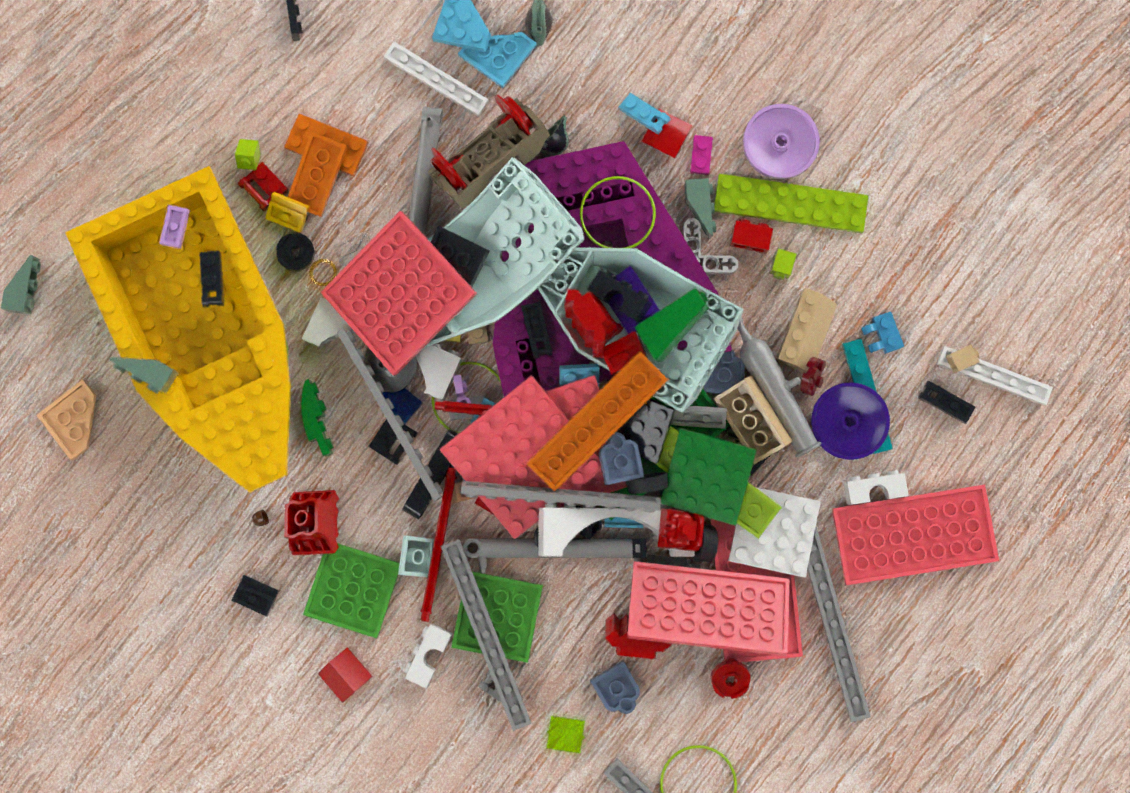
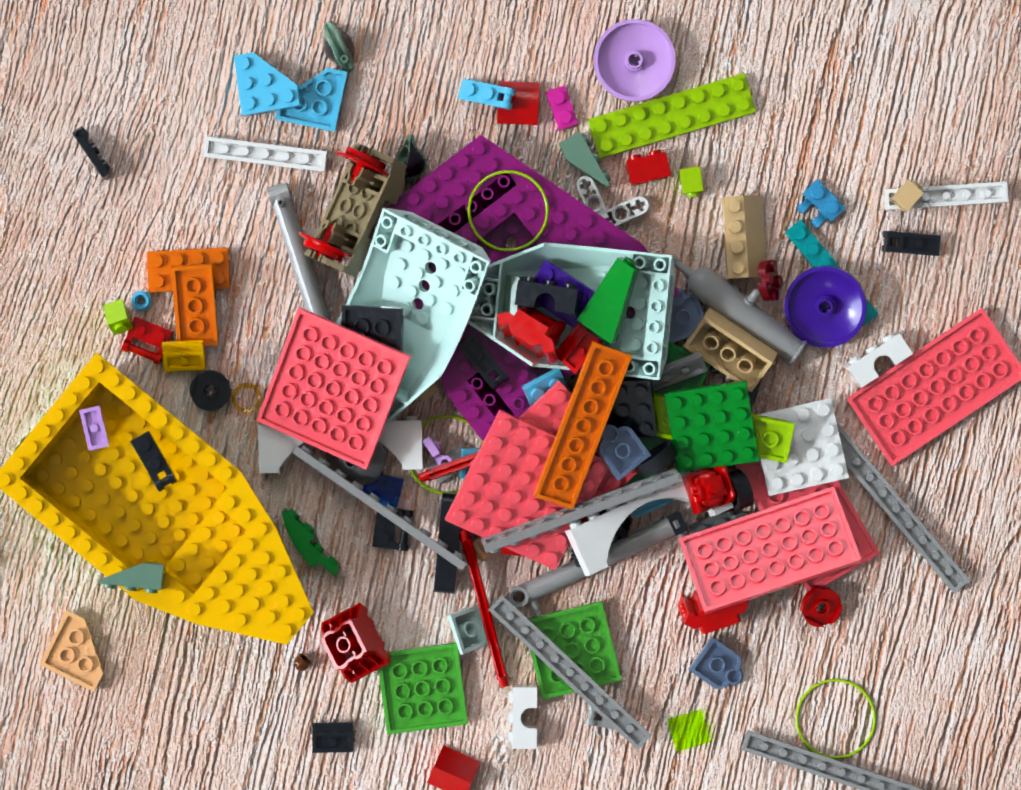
camera: 20 degrees left, 5 degrees up
(270, 148) = (148, 301): none -> medium azure plate

